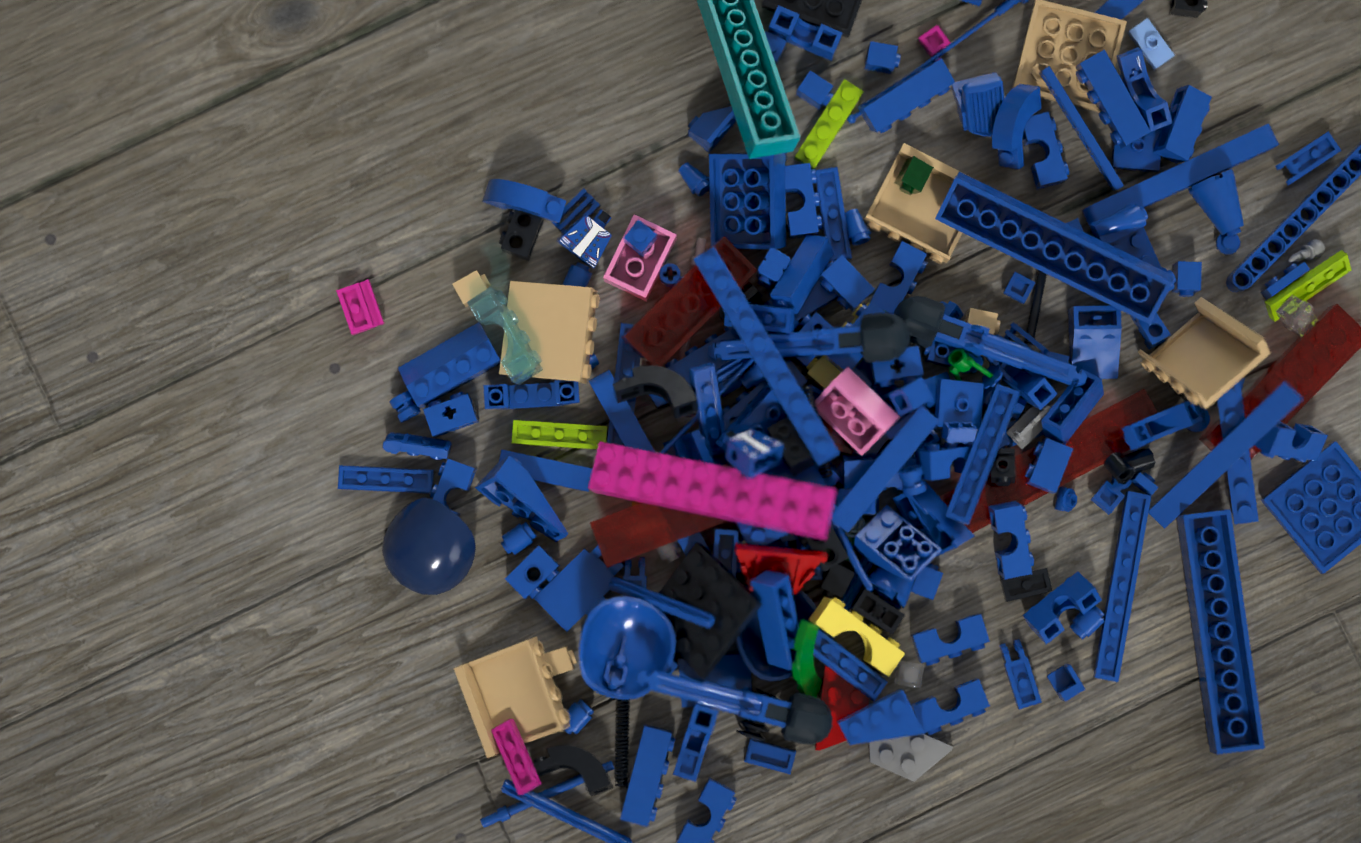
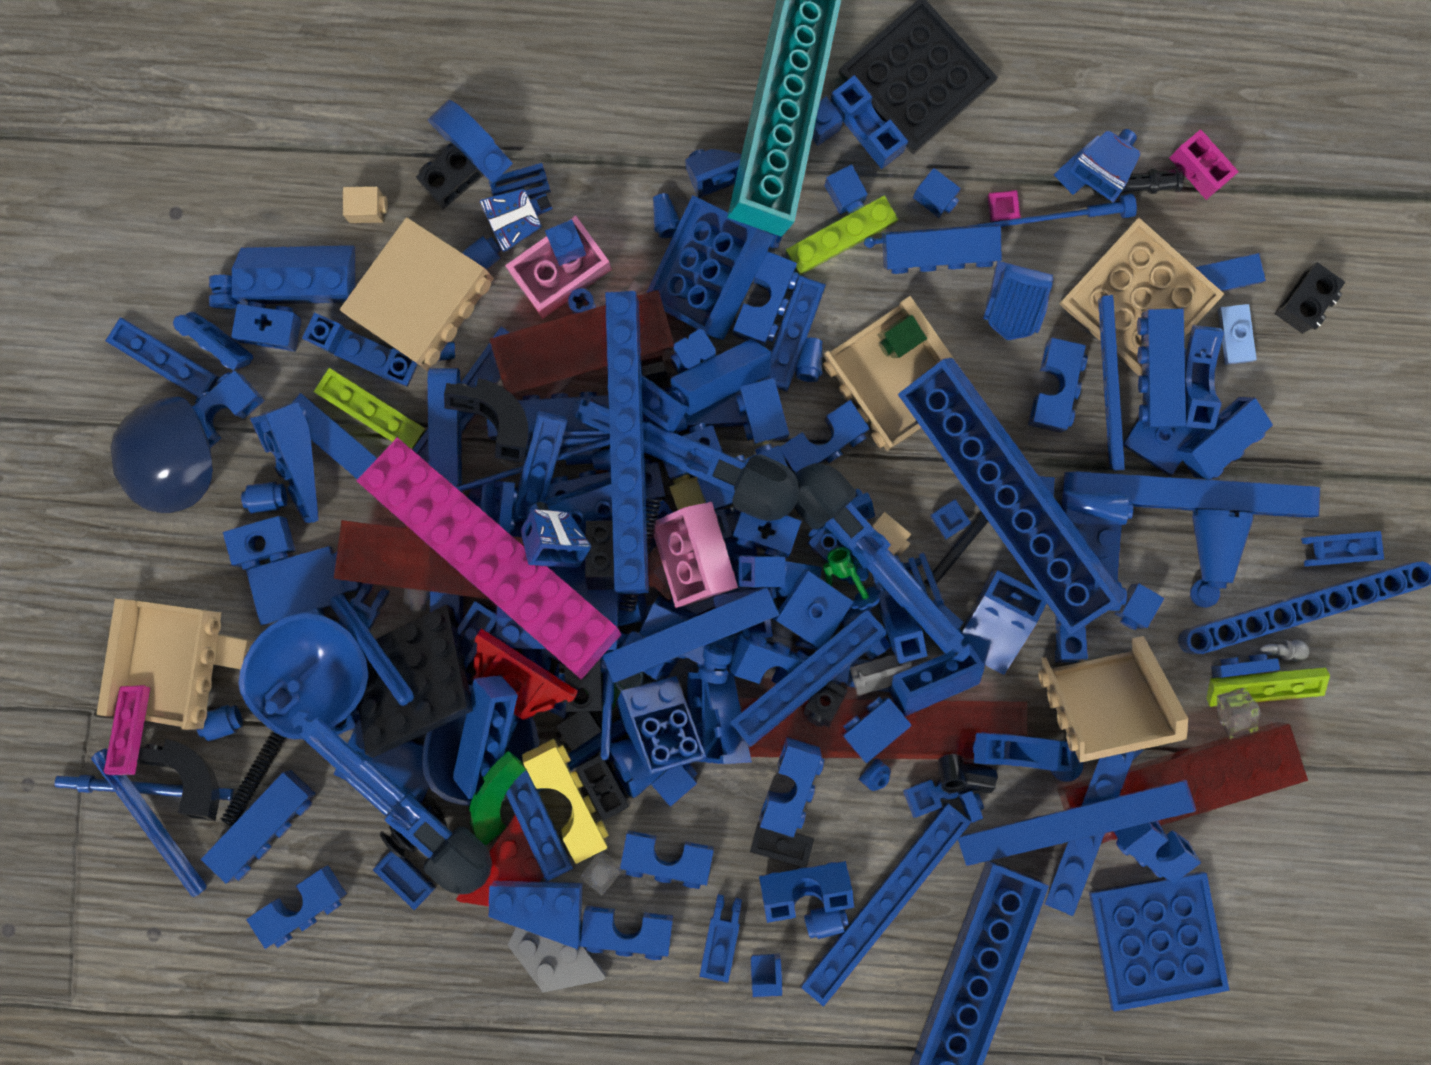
camera: 25 degrees right, 0 degrees up
(360, 307) = (236, 162): dark pink plate -> none
(519, 360) = (366, 304): clear light blue arch -> none
(695, 742) = (331, 818): blue arch -> none
(959, 432) = (796, 639): blue piece -> none
(1010, 124) = (1037, 335): blue arch -> none

